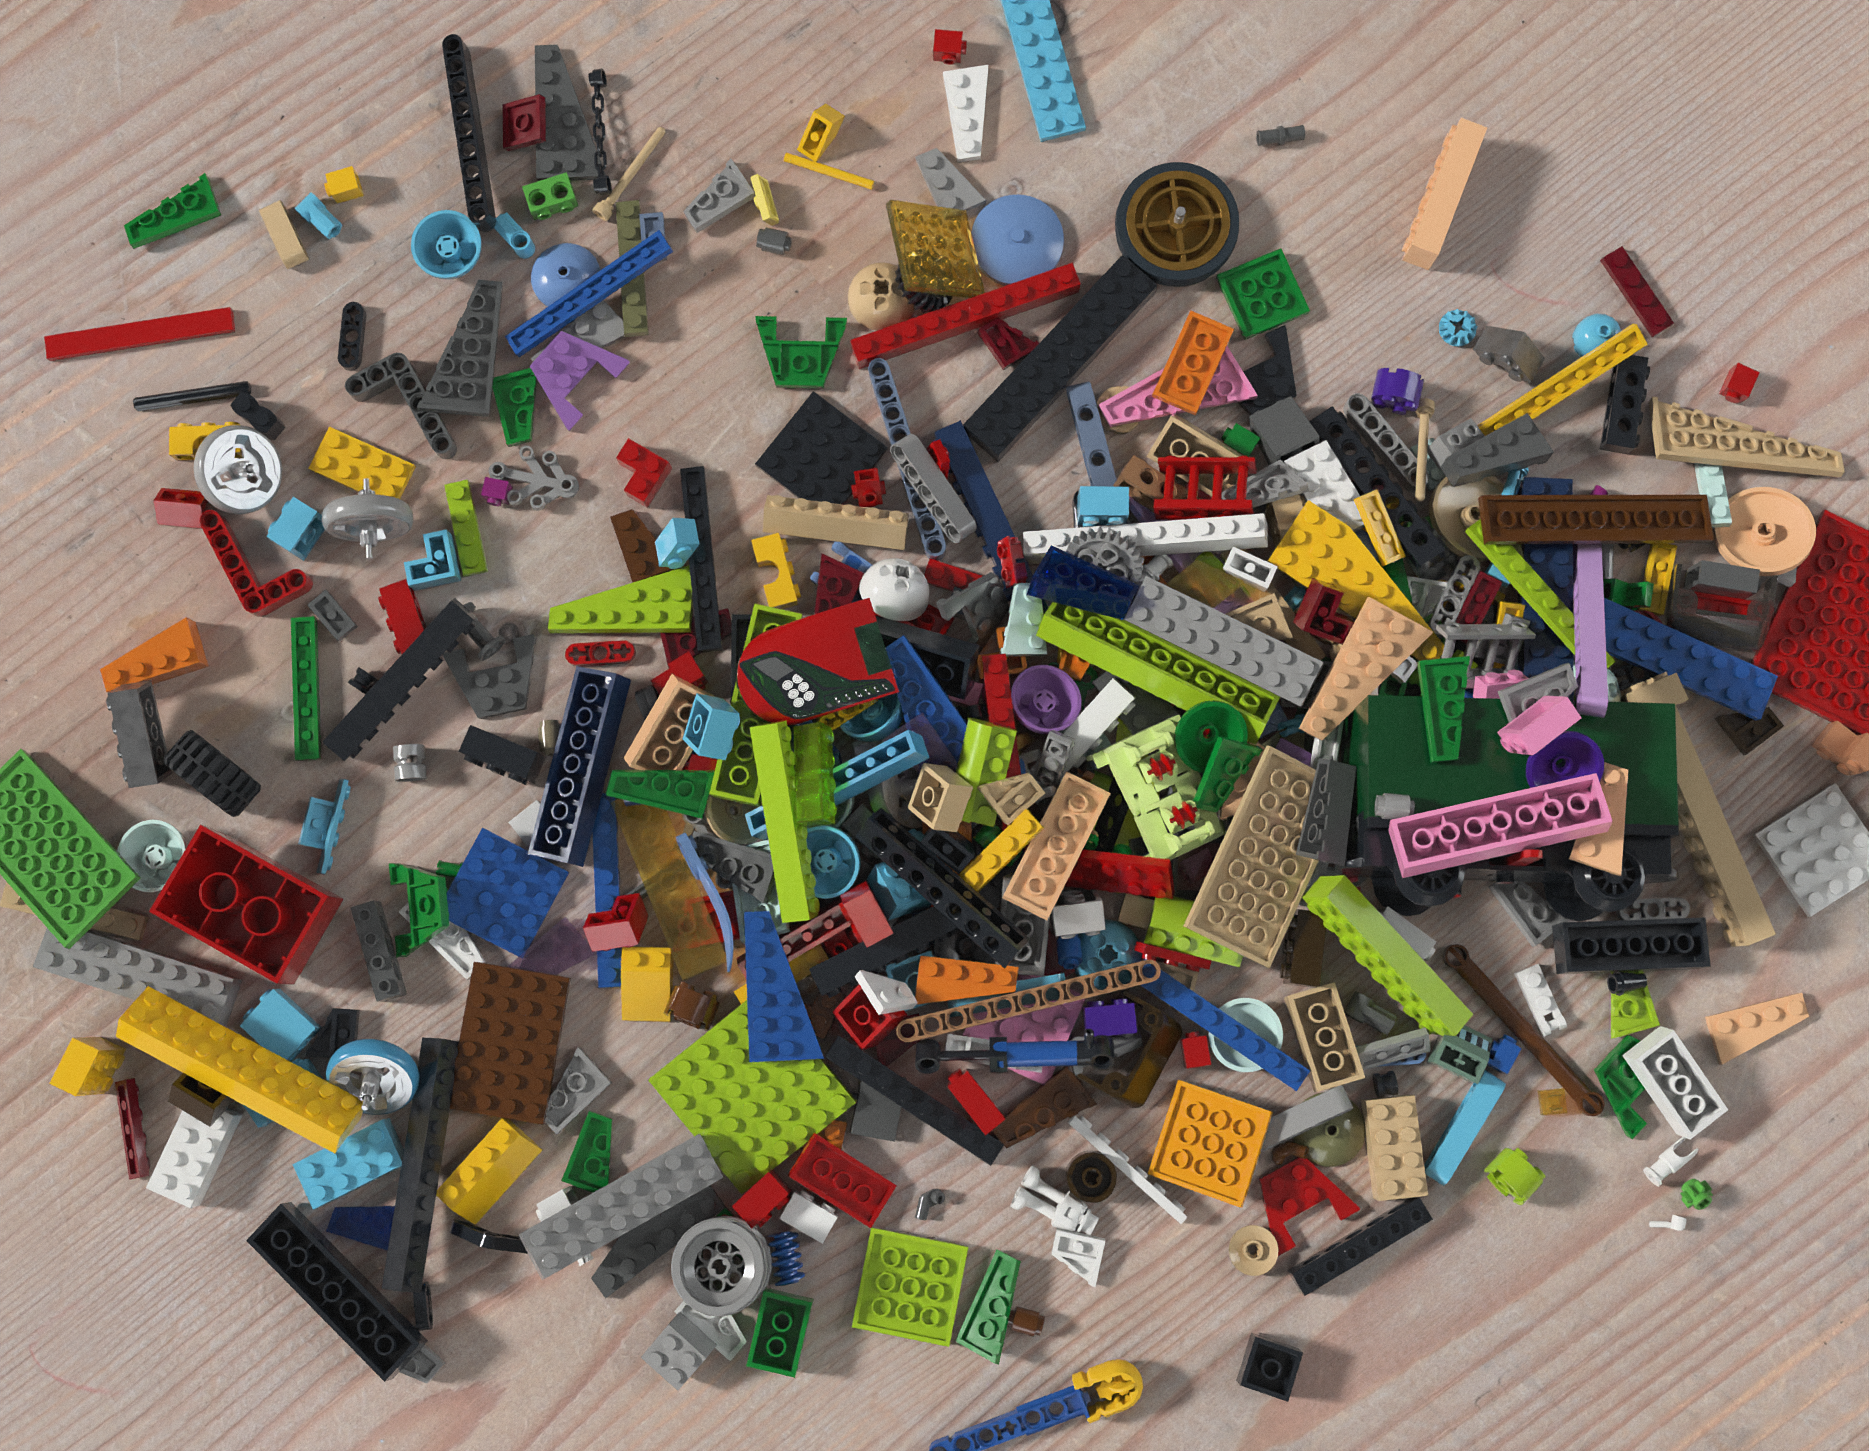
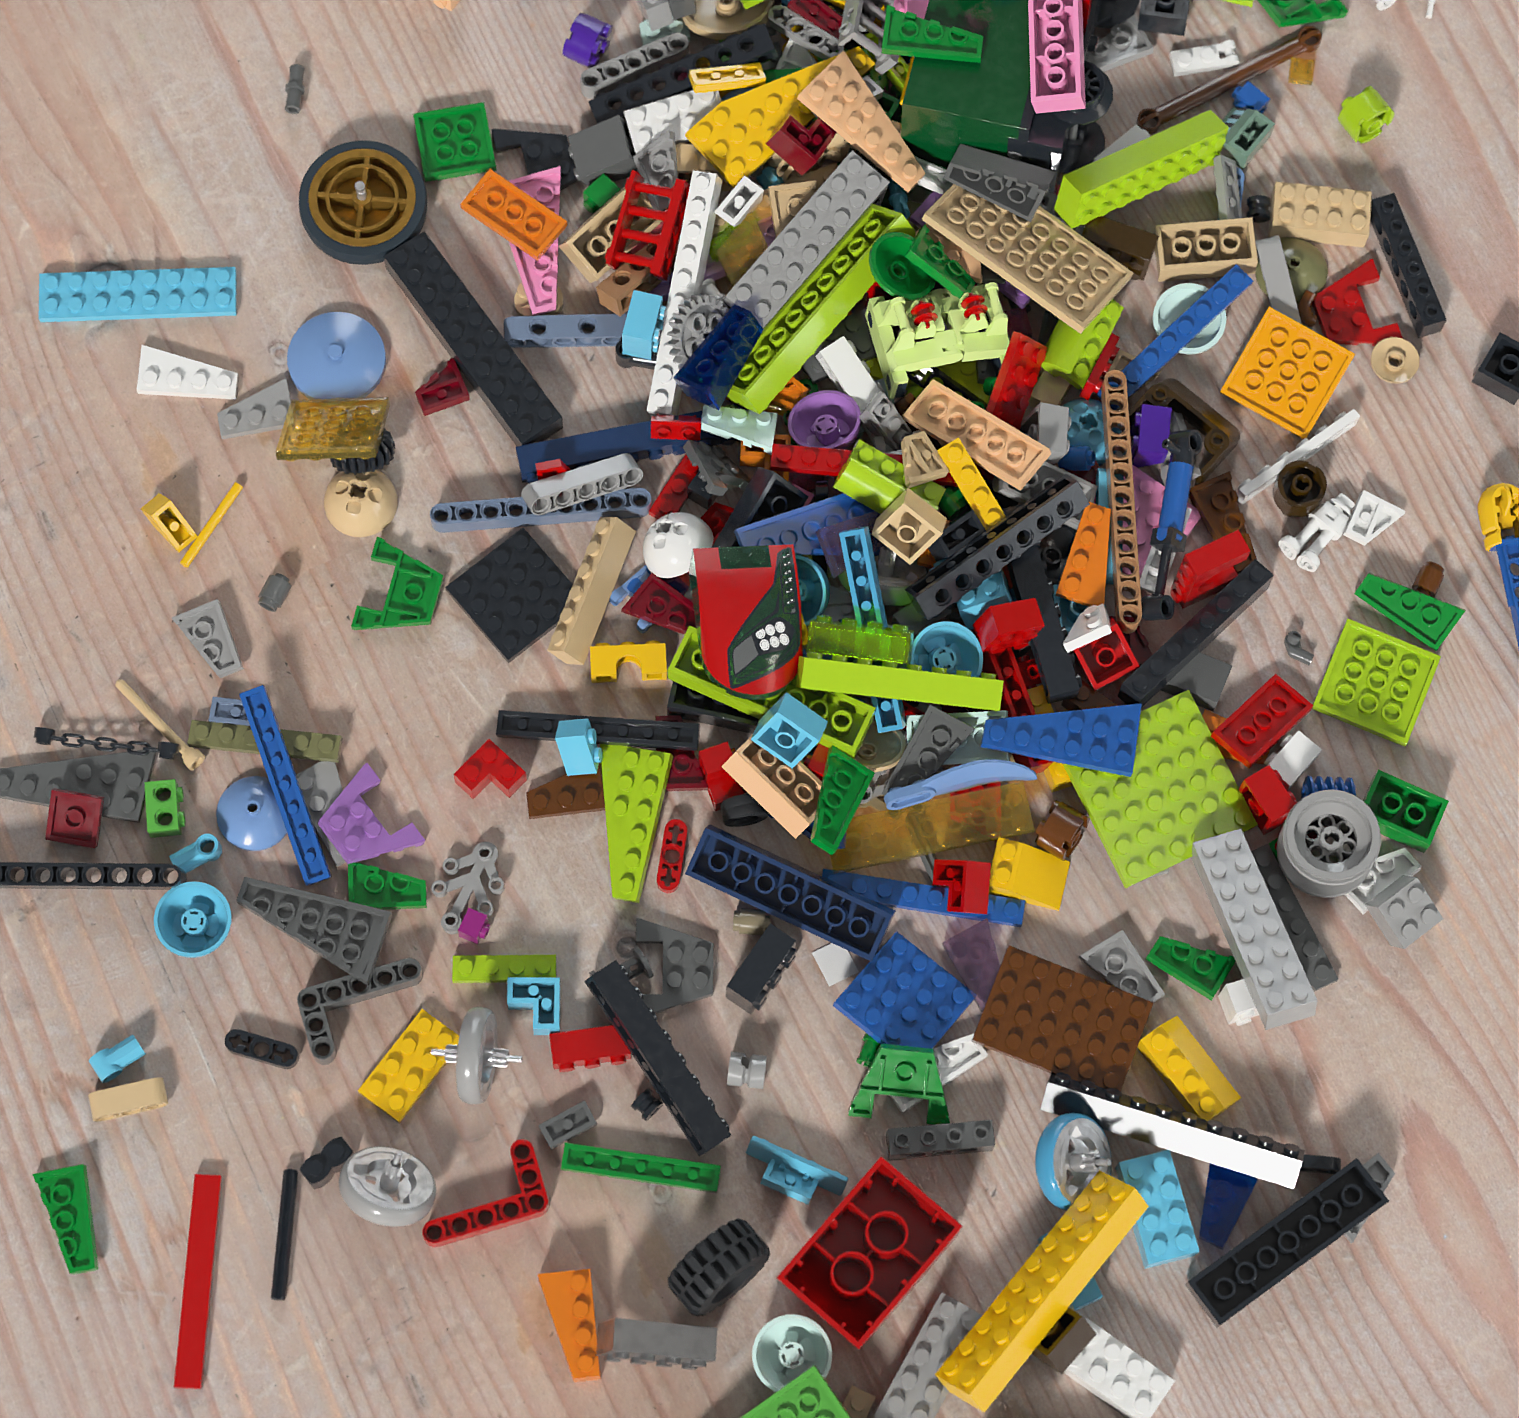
camera: 85 degrees left, 10 degrees down
(179, 507) = (408, 1267): panel -> none
(187, 438) = (335, 1246): yellow arch -> none
(280, 1024) = (995, 1258): medium azure brick -> none
(297, 528) = (466, 1137): medium azure brick -> none
(337, 1031) = (1020, 1202): black wing -> none
(343, 185) = (89, 1024): yellow brick -> none
(485, 1238) = (1260, 1077): black beam -> none
(764, 200) = (227, 593): light yellow plate -> none
(868, 488) = (563, 551): red brick -> none
(949, 46) = (111, 378): red brick -> none
(966, 315) = (405, 423): red brick -> none
(1195, 1050) = (1194, 370): red brick -> none
(1364, 1010) = (1191, 204): dark grey piece -> none
(1393, 806) = (1016, 100): light grey brick -> none
(1424, 412) = (652, 31): tan piece -> none
(1463, 1128) = (1312, 150): medium azure beam -> none

